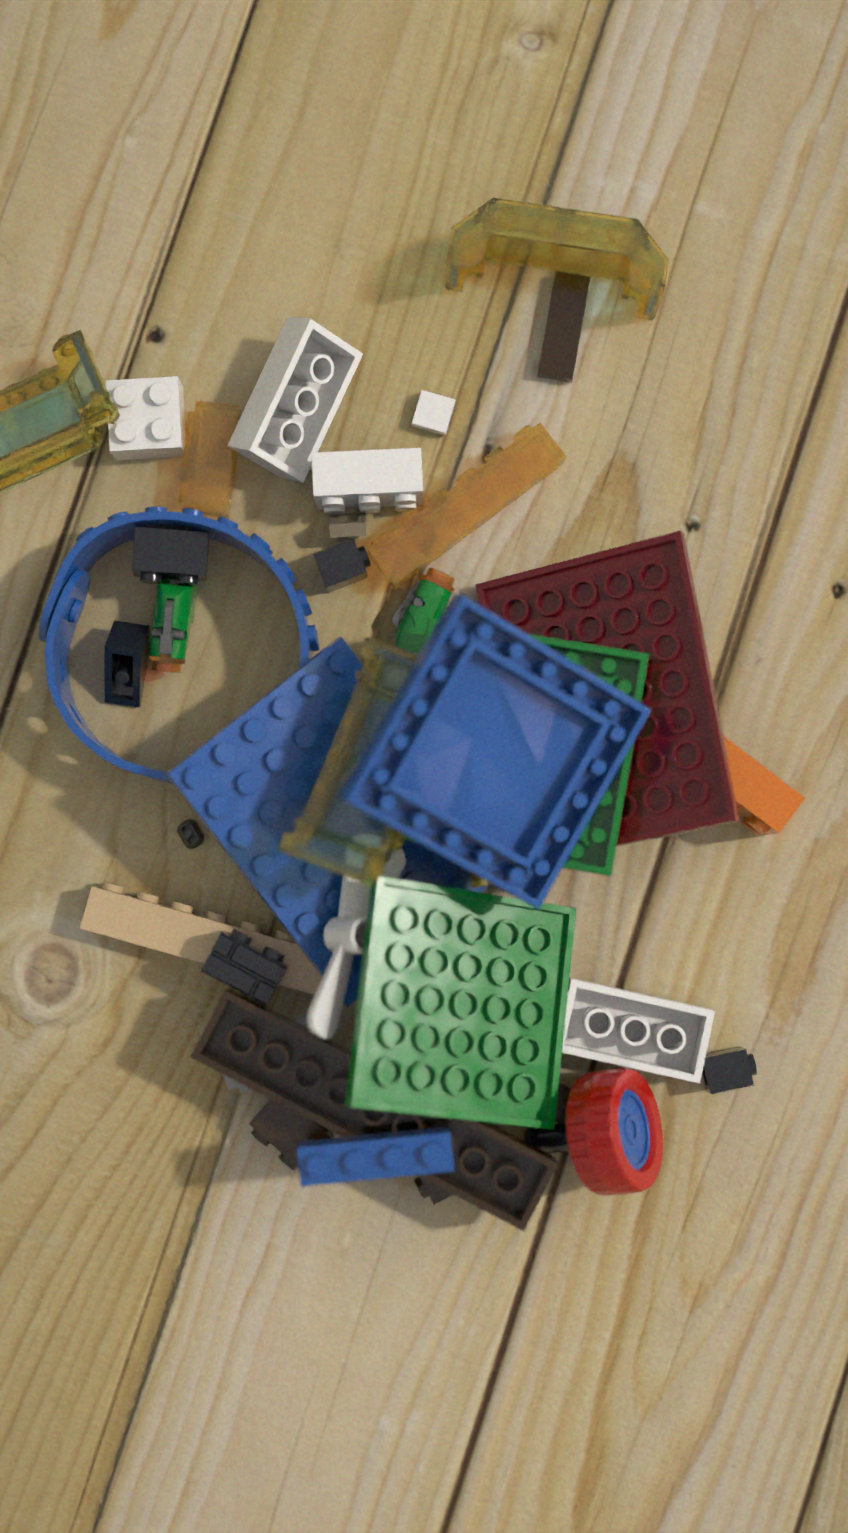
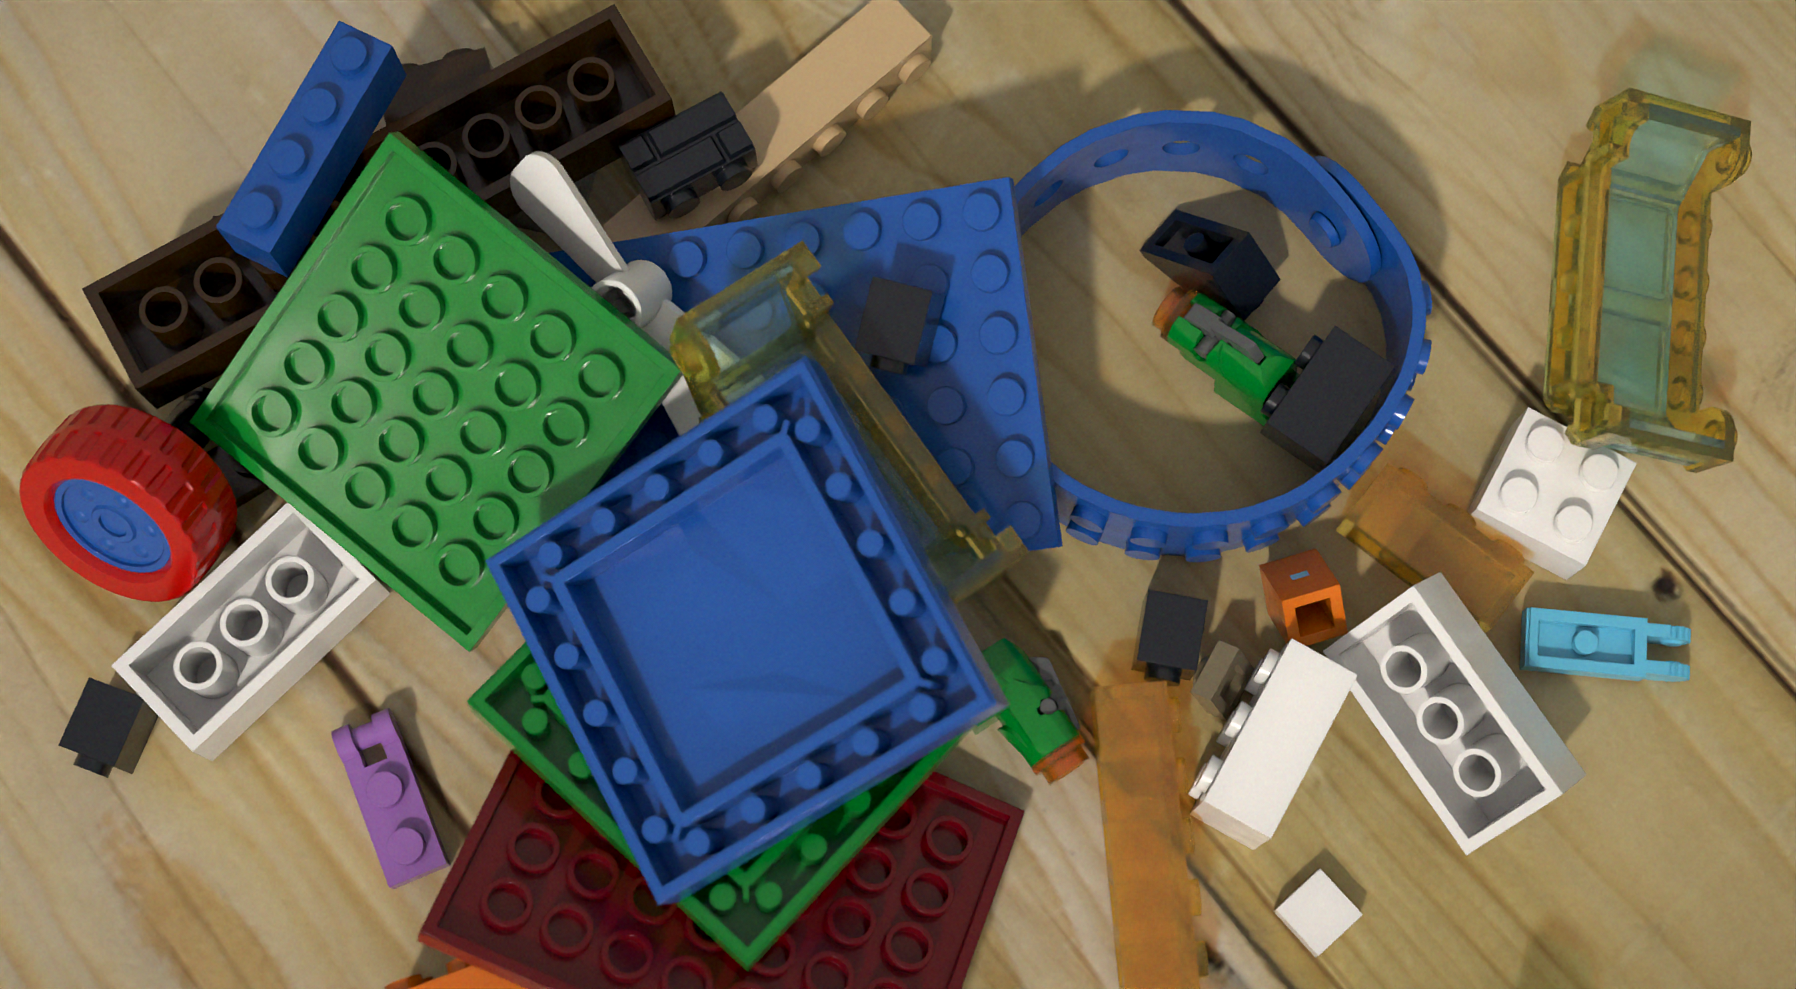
camera: 120 degrees right, 10 degrees down
(211, 351) = (1598, 645): none -> medium azure hinge
(281, 508) = (1303, 598): none -> orange brick
(282, 782) = (898, 325): none -> black brick
(670, 904) = (391, 800): none -> medium lavender plate

